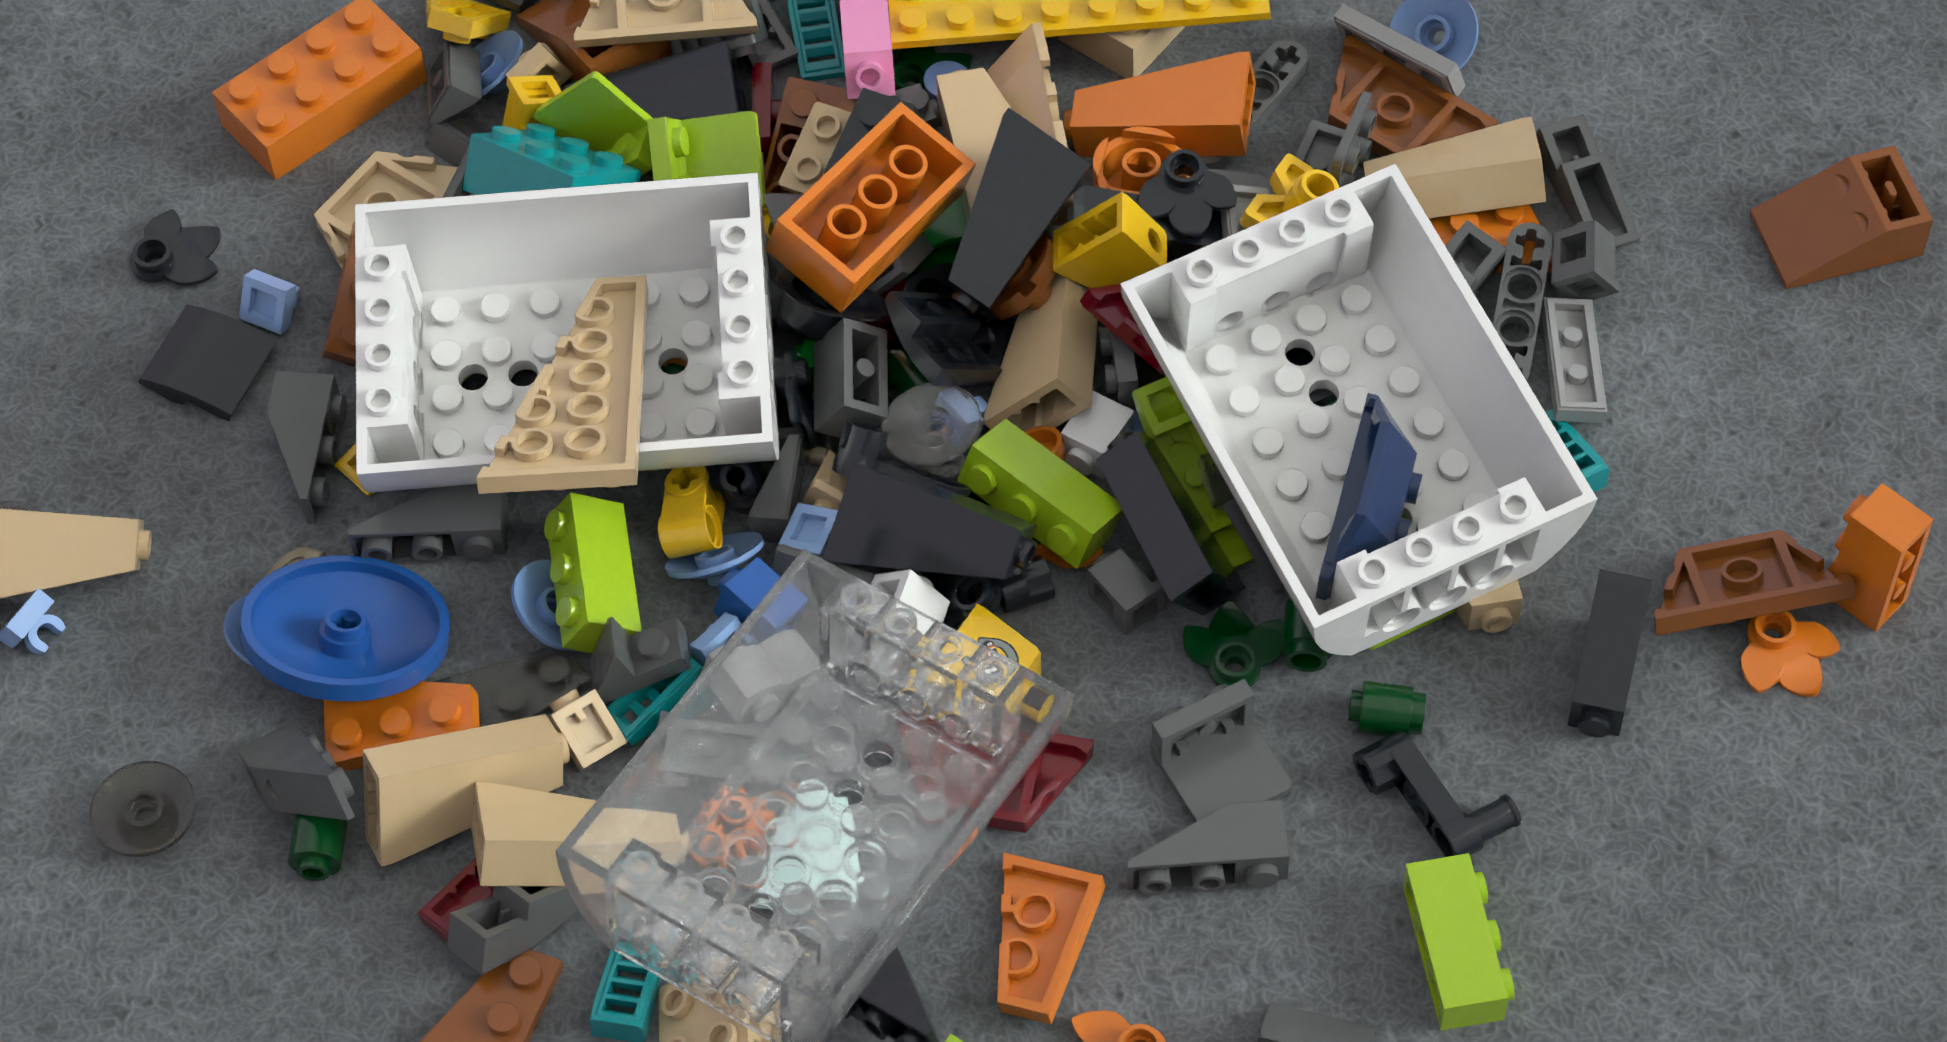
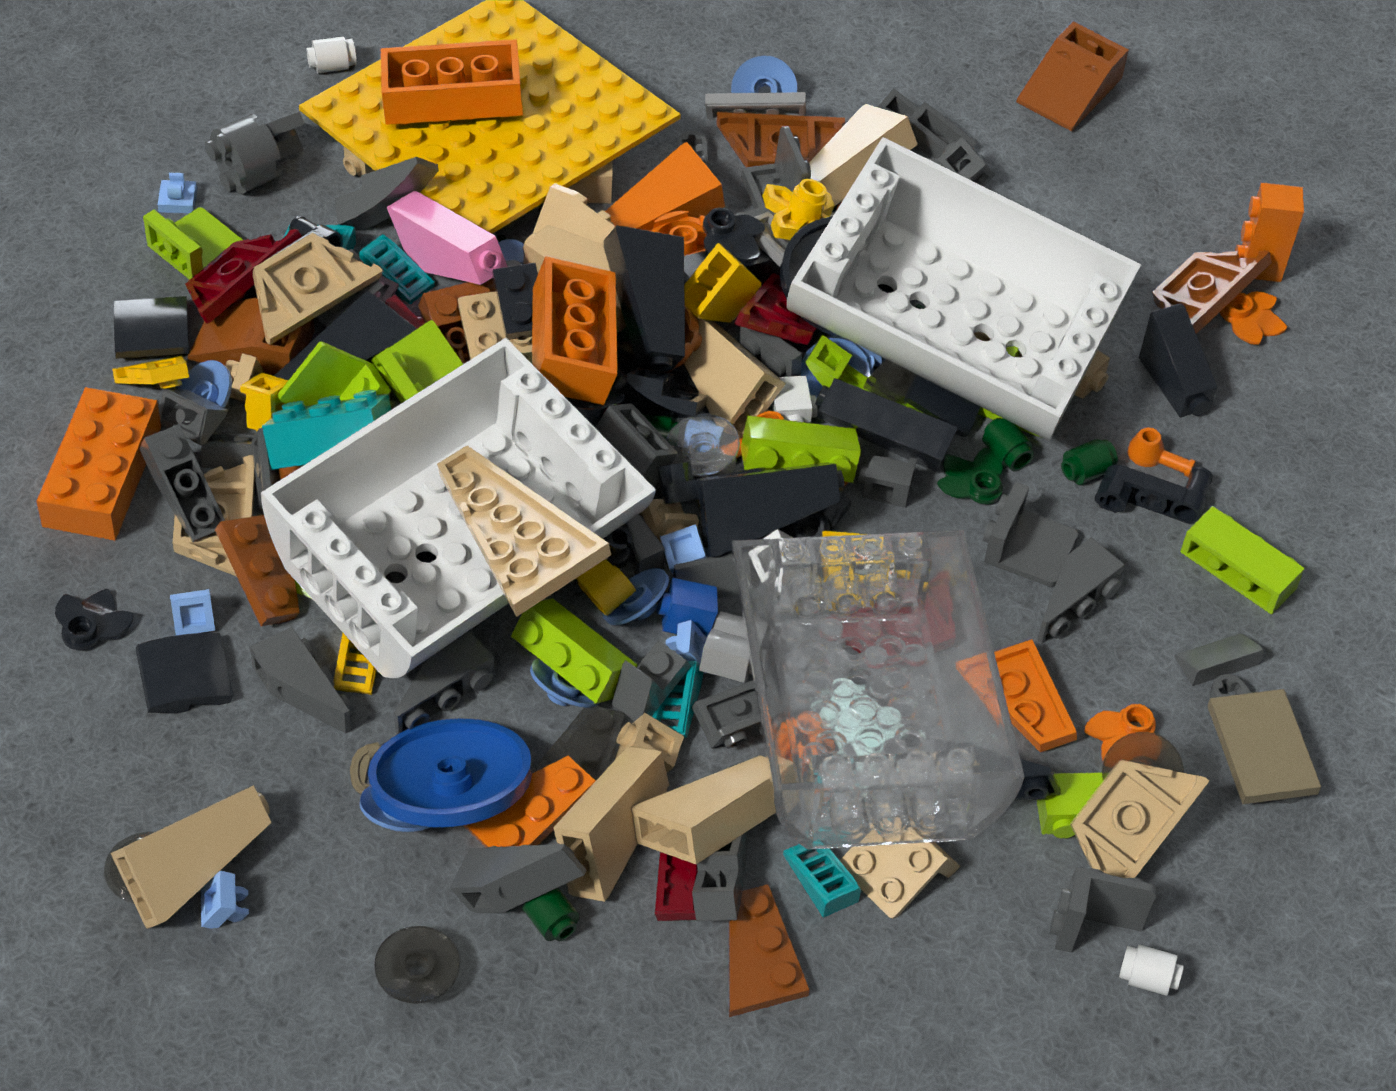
camera: 45 degrees left, 5 degrees down
(366, 147) = (182, 481): none -> dark grey slope
(1373, 491) = (1003, 331): dark blue wedge -> none
(1487, 750) = (1148, 451): none -> orange bar

